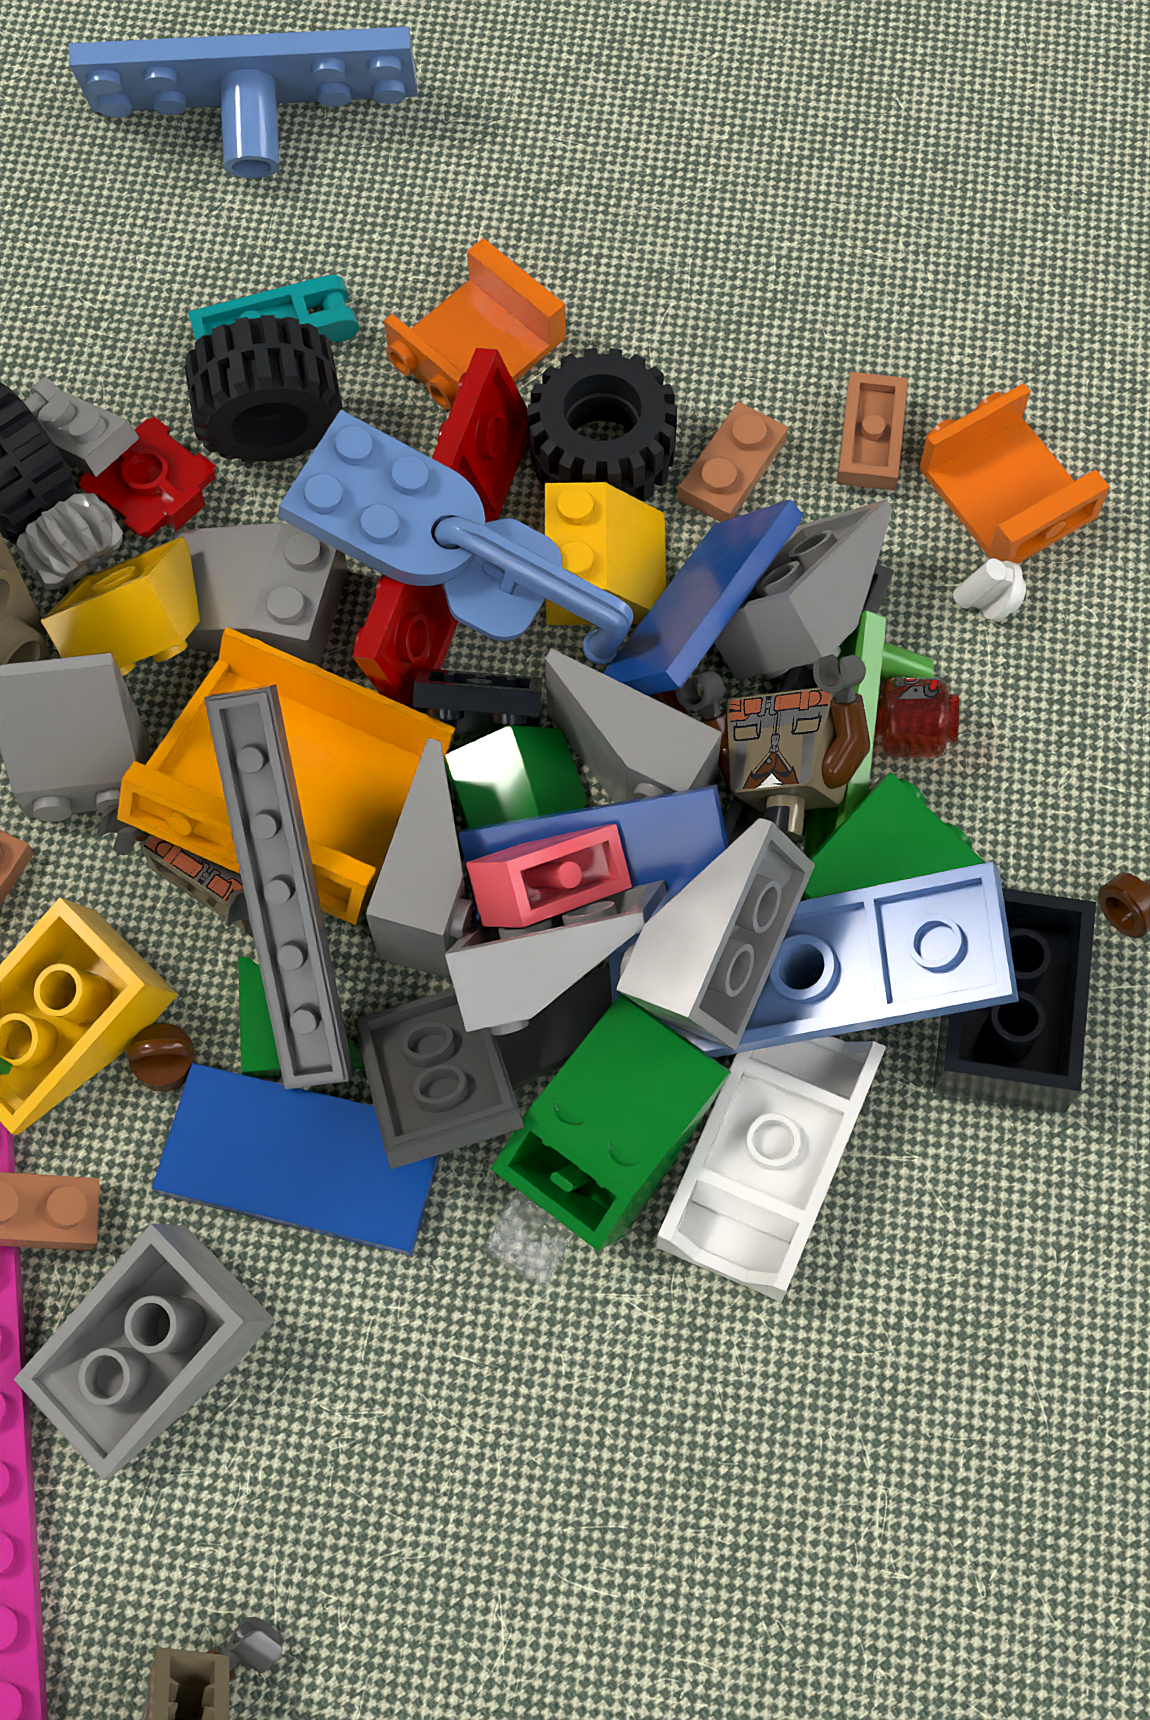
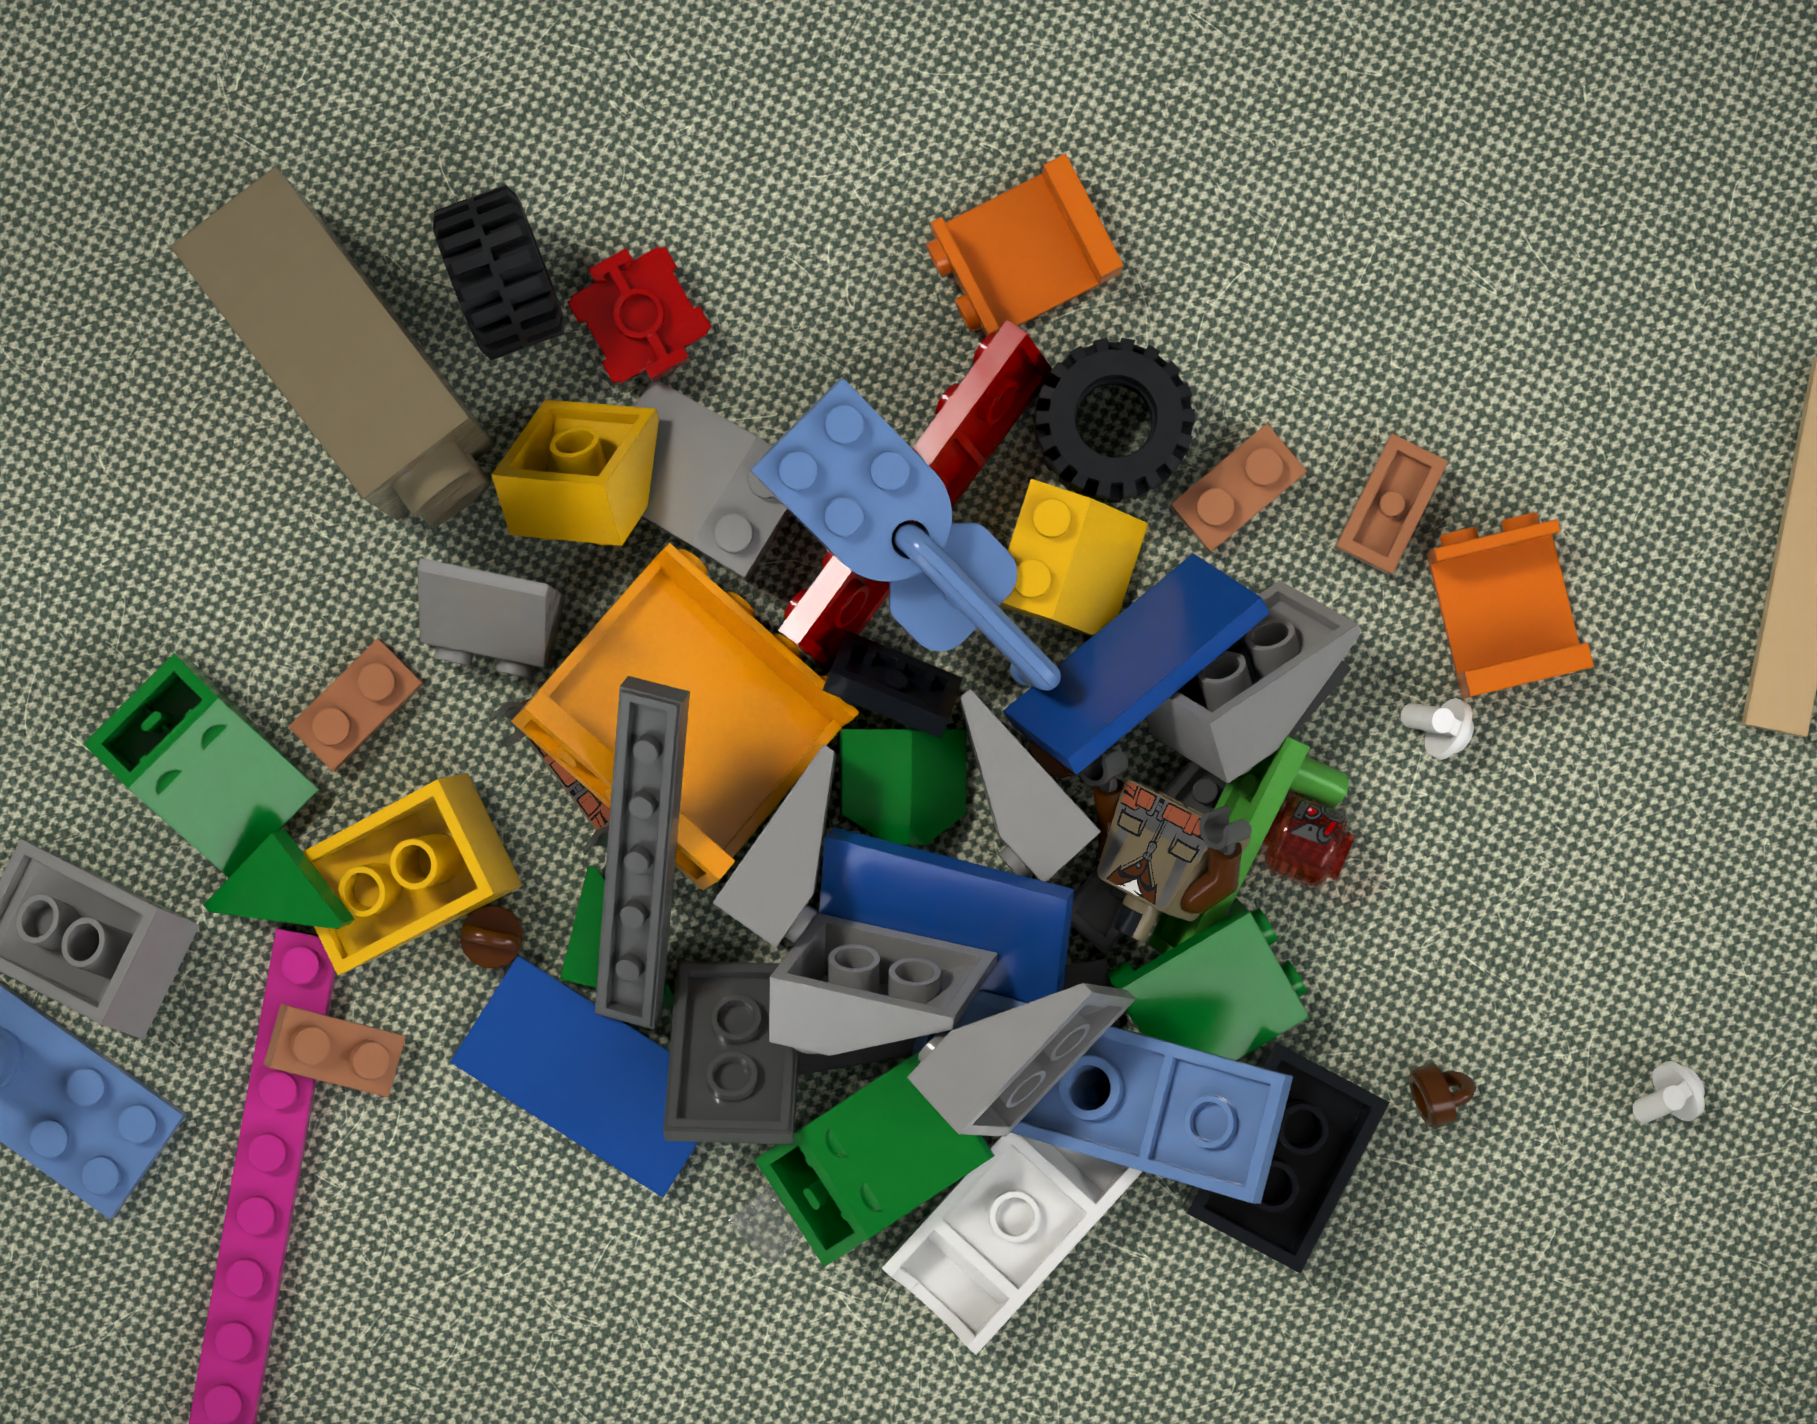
camera: 20 degrees right, 20 degrees up
(69, 541) = (543, 377): light grey gear -> none
(81, 431) = (576, 239): light grey plate -> none
(143, 1347) = (406, 1209): light grey slope -> none
(262, 388) = (782, 274): black tyre -> none
(293, 300) = (818, 163): teal plate -> none
(548, 876) = (890, 919): coral slope -> none

